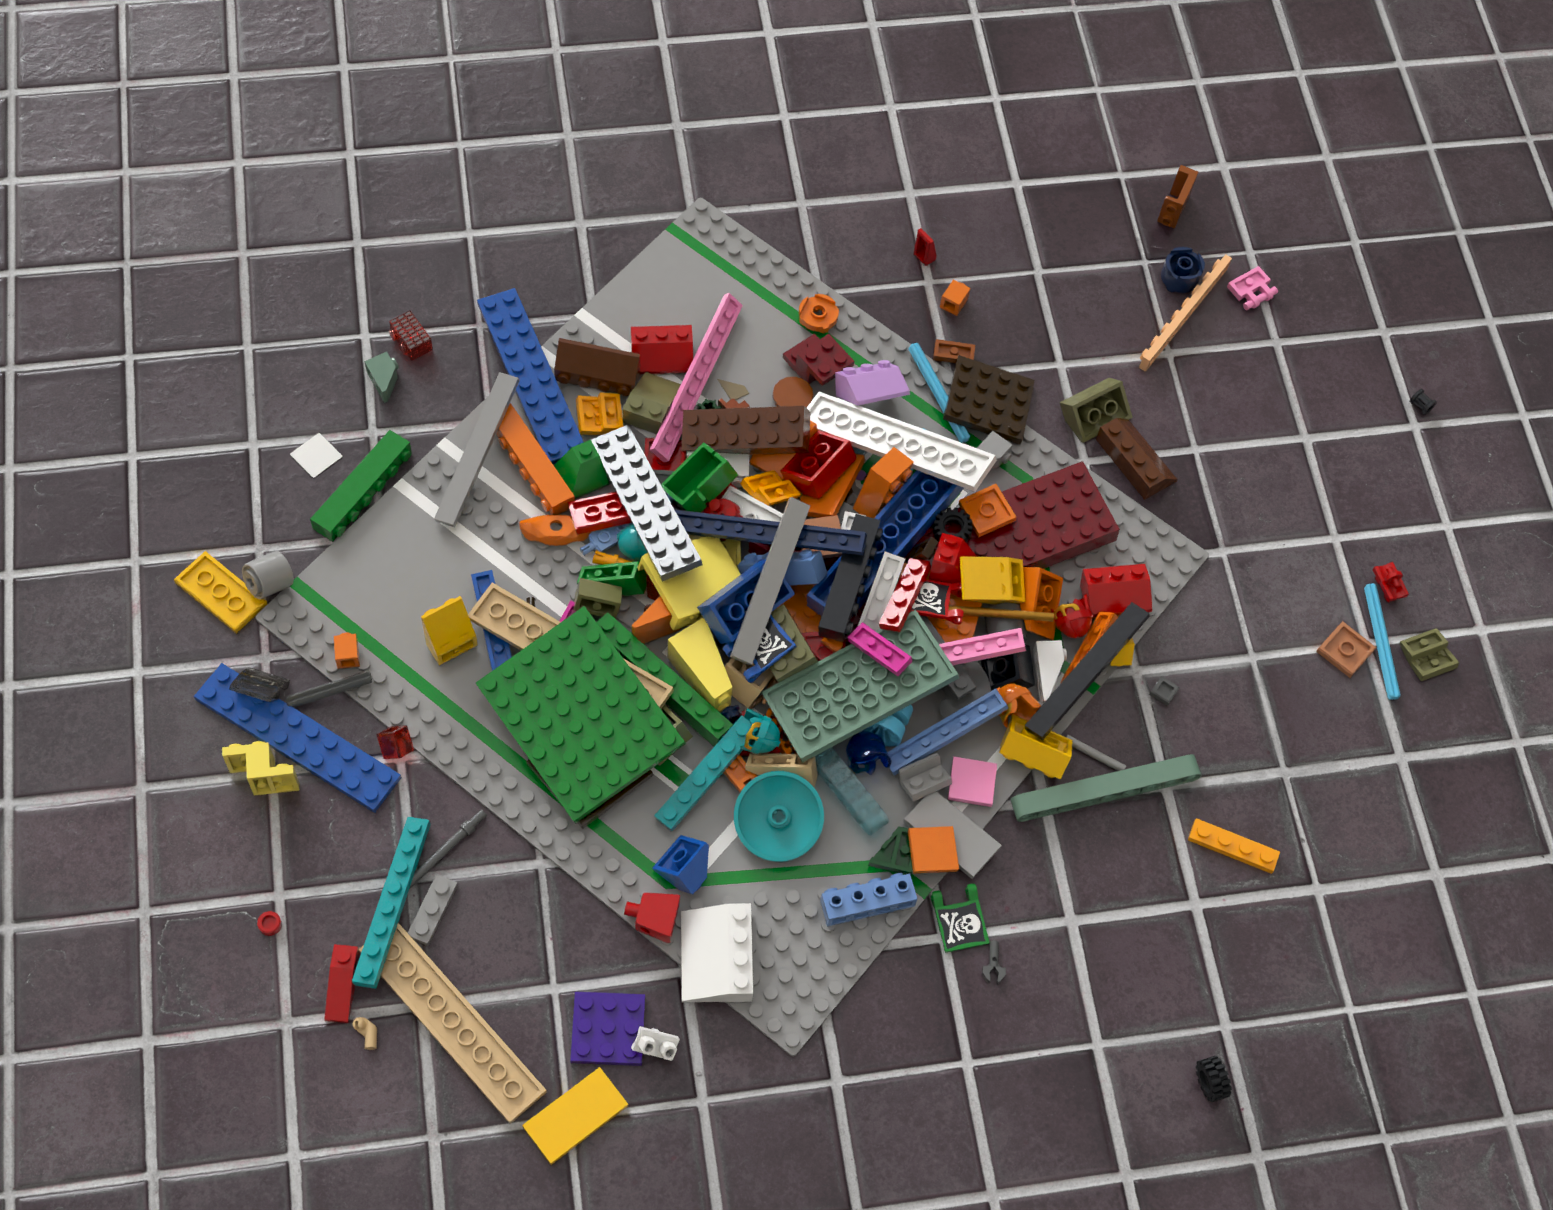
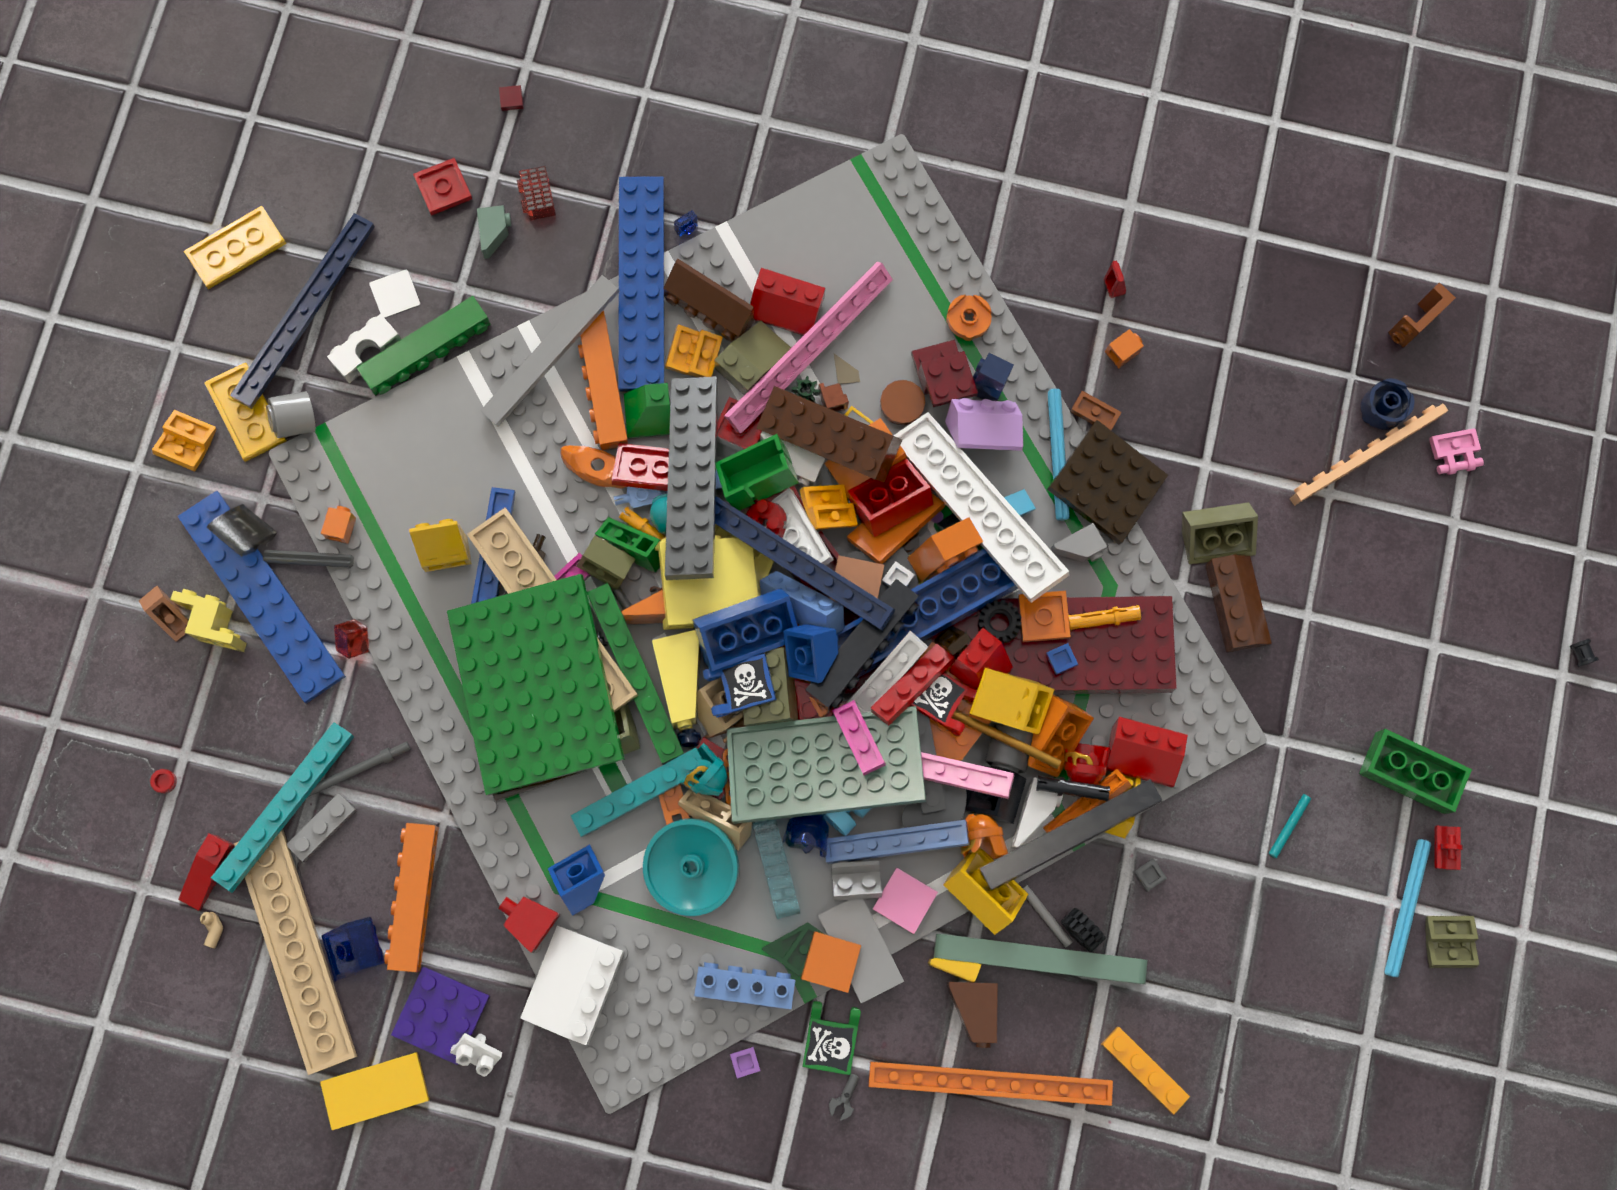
camera: 20 degrees right, 15 degrees up
(156, 463) = (234, 247): none -> yellow tile
(174, 633) = (184, 440): none -> light orange slope
(216, 779) = (165, 613): none -> nougat slope
(241, 493) = (302, 311): none -> dark blue plate
(315, 489) = (376, 334): none -> white arch
(325, 356) = (442, 186): none -> red plate
(355, 271) = (511, 98): none -> dark red tile
(504, 999) = (353, 948): none -> clear blue slope
(541, 936) = (412, 897): none -> orange brick
(549, 319) = (686, 224): none -> clear blue plate
(770, 581) = (776, 621): light grey tile -> none
(809, 596) = (810, 651): none -> blue slope
(861, 342) = (991, 377): none -> dark blue arch
(895, 965) = (745, 1062): none -> medium lavender plate
(1017, 537) = (1062, 659): none -> blue plate
(1042, 821) = (964, 970): none -> yellow slope
(1043, 490) = (1112, 616): none -> light orange pin
(1062, 636) = (1072, 788): none -> black pin
(1071, 847) = (977, 1010): none -> reddish brown slope
(1110, 903) = (990, 1083): none -> orange plate
(1131, 748) = (1083, 929): none -> black tyre
(1258, 614) = (1289, 826): none -> teal bar
(1337, 532) = (1415, 771): none -> green brick
(1346, 649) = (1365, 902): nougat tile -> none

